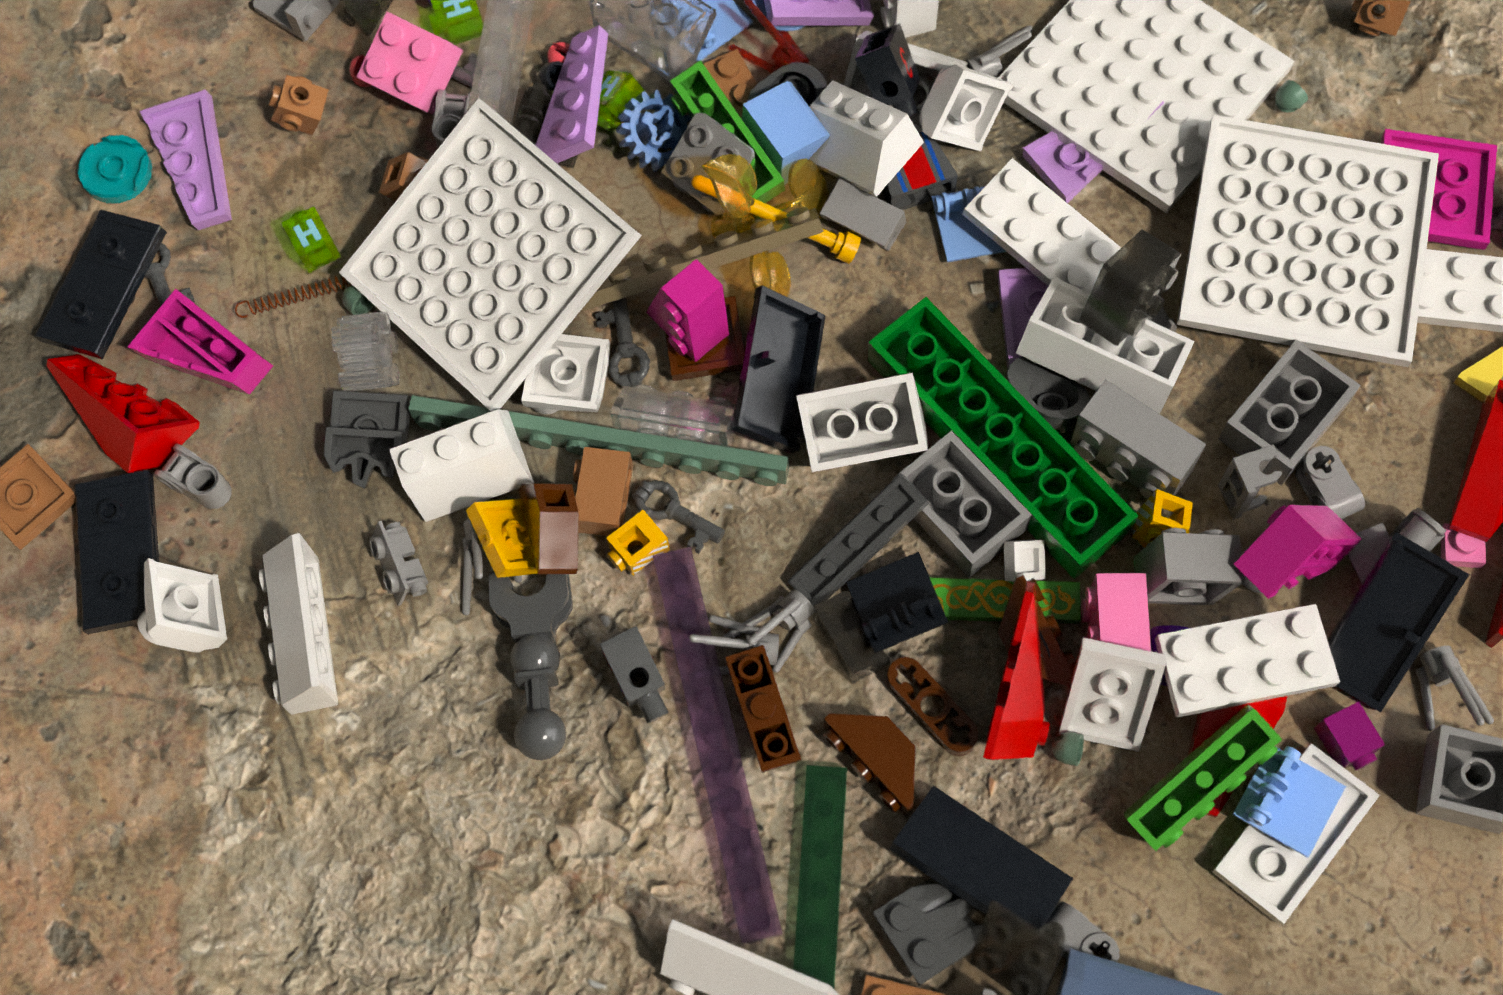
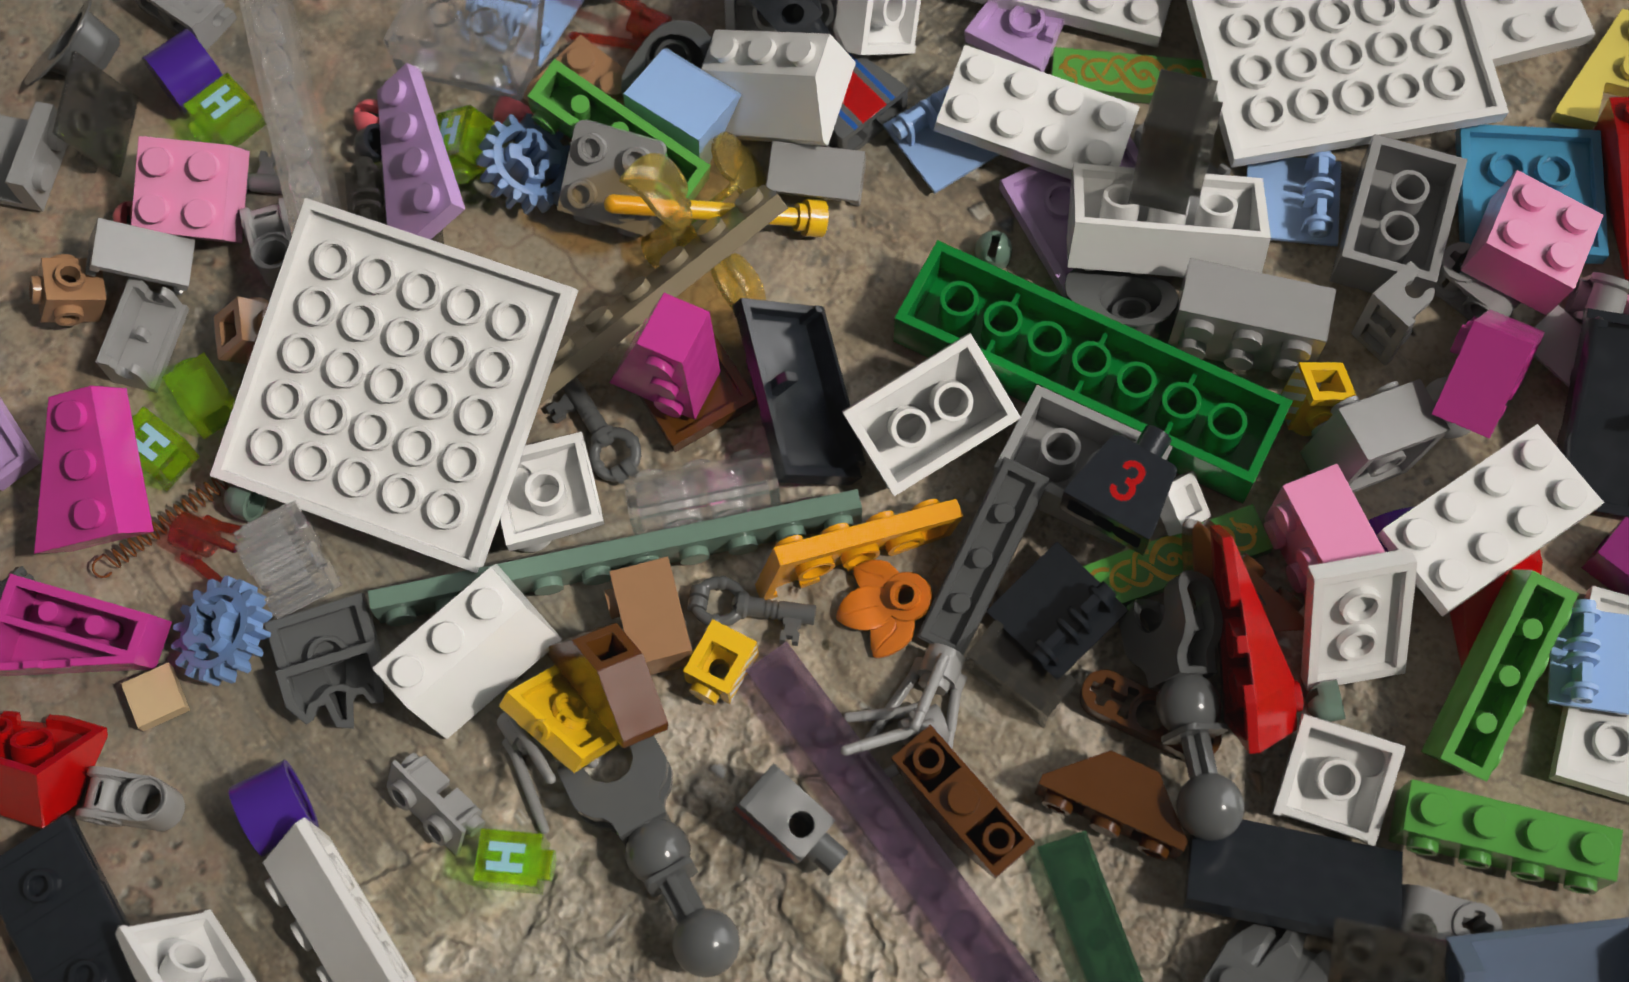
camera: 25 degrees left, 0 degrees up
(241, 413) = (155, 697): none -> tan tile
(258, 239) = (90, 473): none -> dark pink wedge
(285, 515) = (270, 805): none -> dark purple piece
(302, 385) = (221, 631): none -> medium blue gear
(315, 315) = (200, 538): none -> clear red plant
(335, 156) = (142, 336): none -> light grey hinge
(356, 97) = (140, 254): none -> light grey hinge
(357, 211) = (201, 394): none -> clear neon green brick
(433, 624) = (514, 861): none -> clear neon green brick
(661, 84) = (507, 106): none -> coral hinge
(769, 547) = (877, 606): none -> orange plate
(770, 497) = (840, 544): none -> light orange wing
(964, 674) = (1178, 660): none -> dark grey piece
(977, 326) = (1004, 249): none -> sand green hinge
(978, 529) = (1123, 488): none -> black torso
(1048, 805) = (1338, 778): none -> white slope
(1123, 221) = (1119, 74): none -> bright green tile
(1156, 899) = (1506, 836): none -> bright green brick
(1221, 368) = (1302, 197): none -> light blue hinge
(1380, 467) = (1532, 243): none -> bright pink brick
(1408, 431) = (1554, 156): none -> dark azure plate

